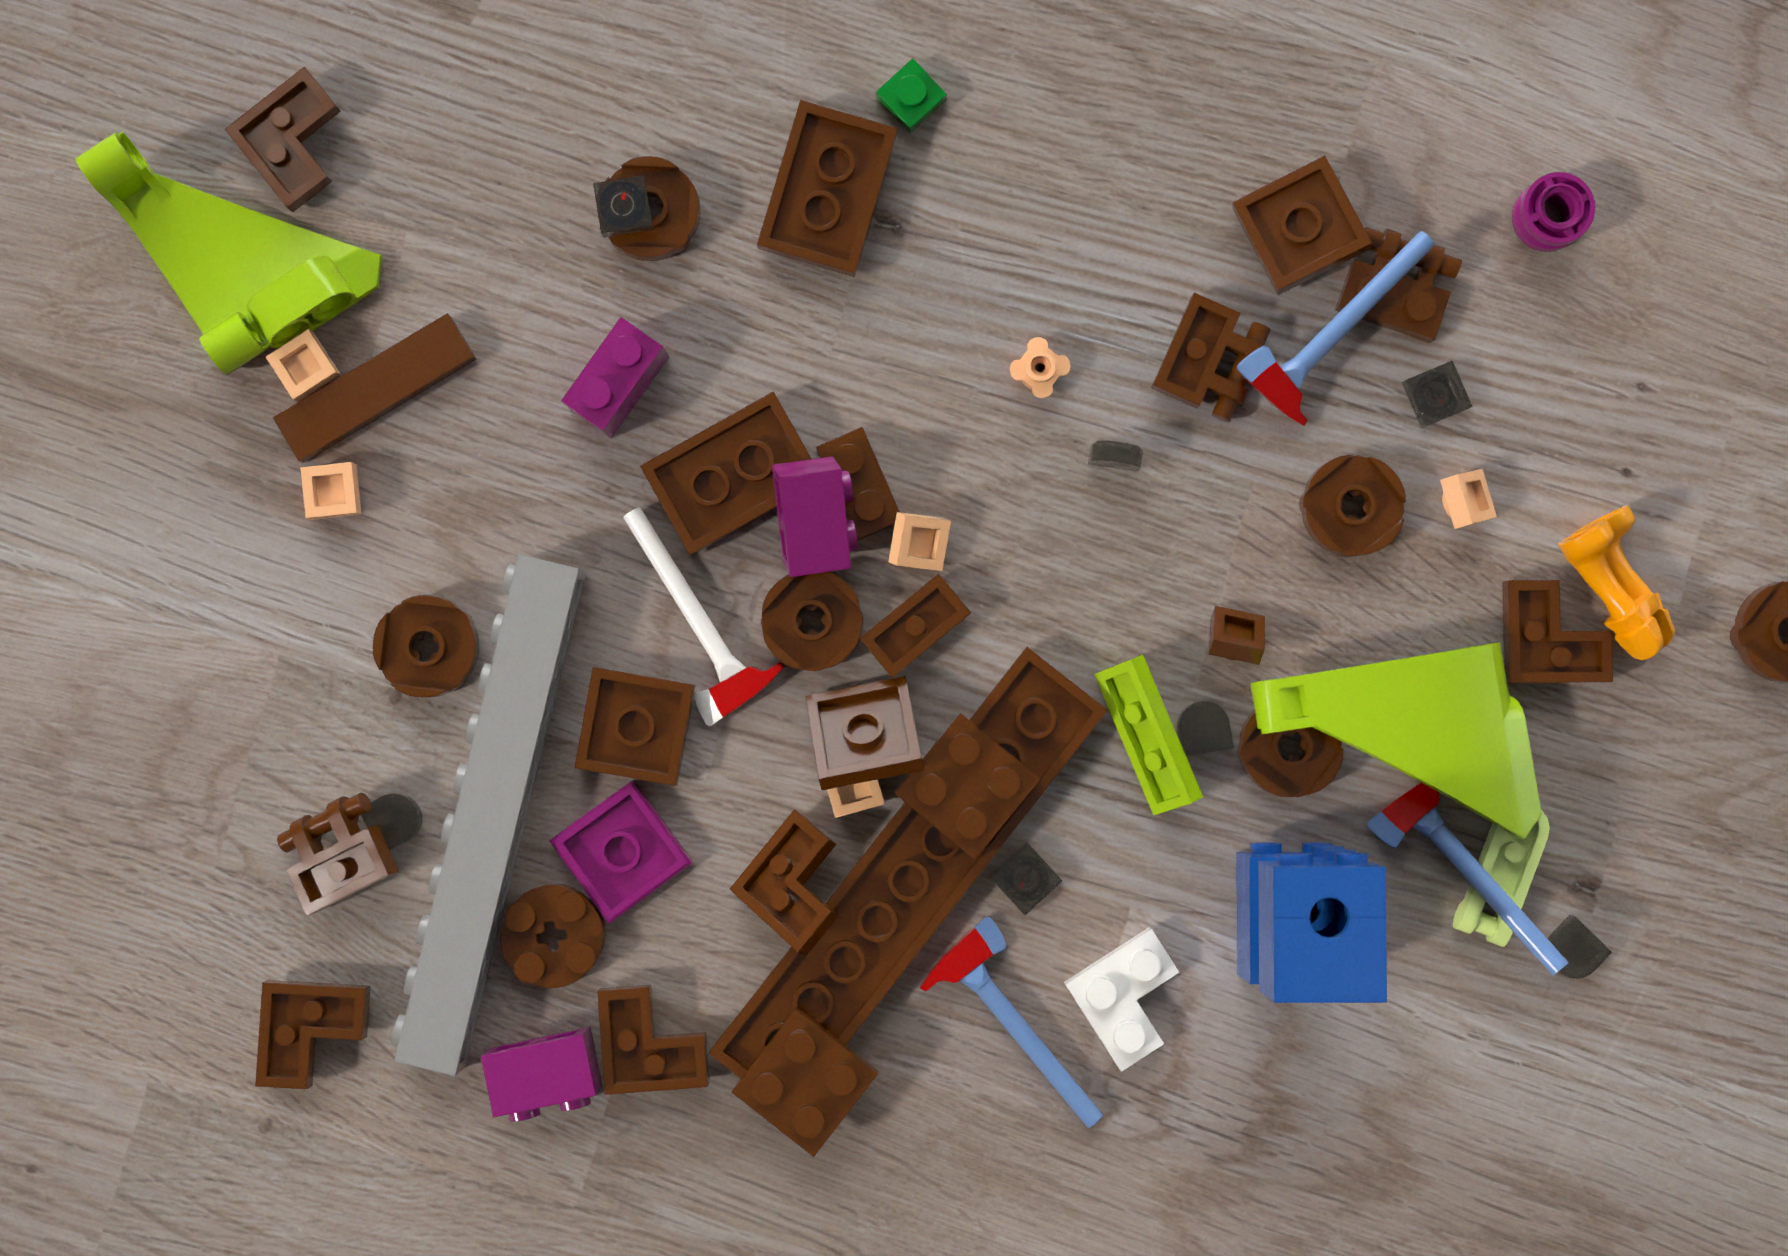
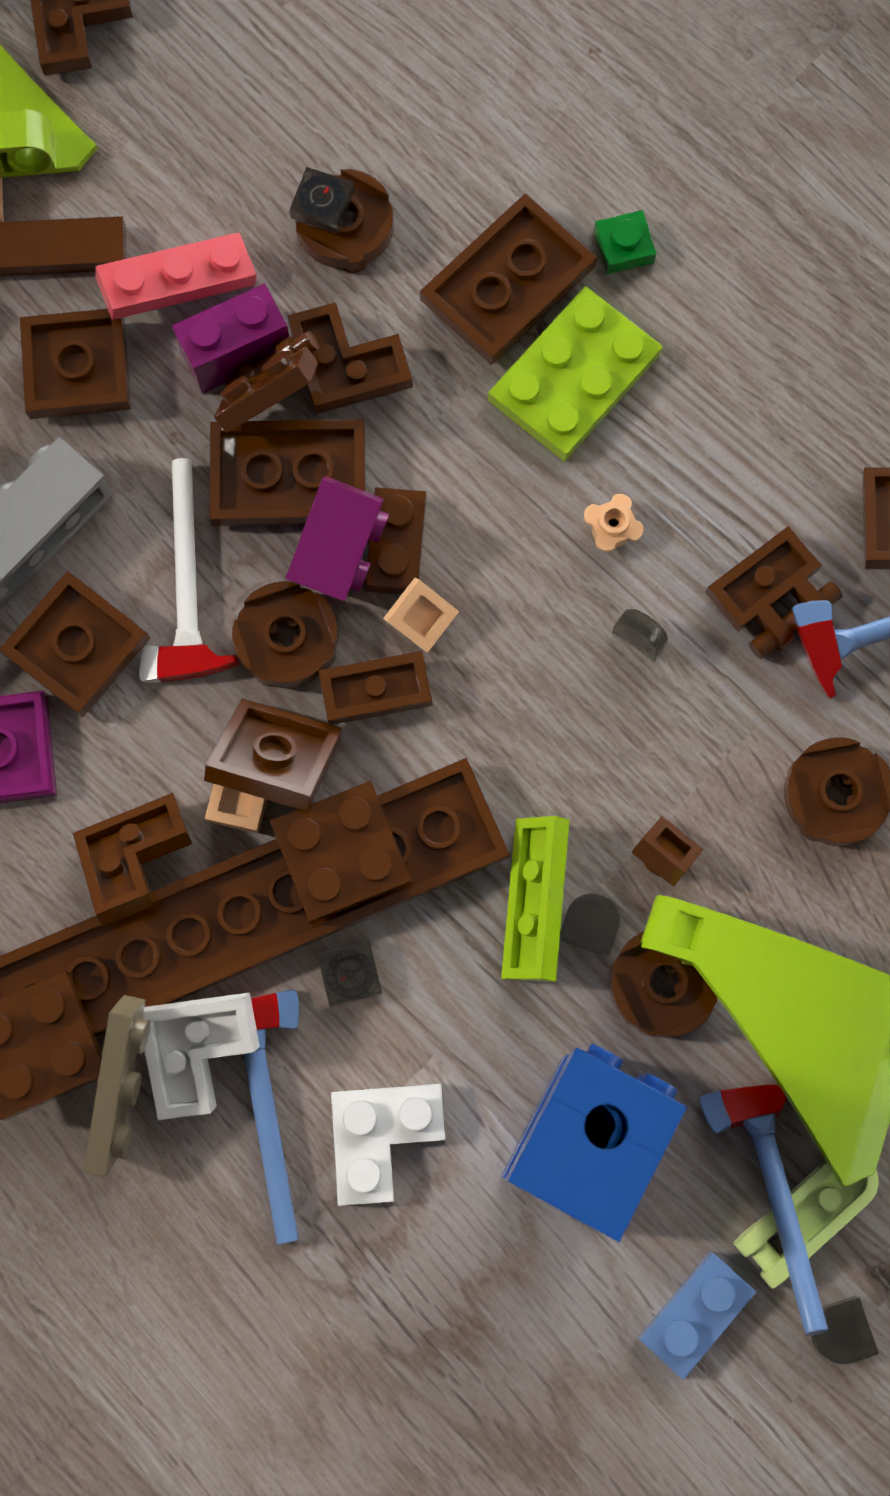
camera: 30 degrees right, 10 degrees down
(486, 474) = (74, 364): none -> reddish brown plate
(529, 345) = (175, 275): none -> coral plate
(674, 405) = (267, 381): none -> reddish brown plate
(727, 357) = (349, 373): none -> reddish brown plate
(894, 1078) = (117, 1085): none -> dark tan plate
(923, 1012) = (183, 1041): none -> white plate
(932, 245) = (575, 373): none -> lime plate
(1452, 999) = (696, 1315): none -> medium blue plate

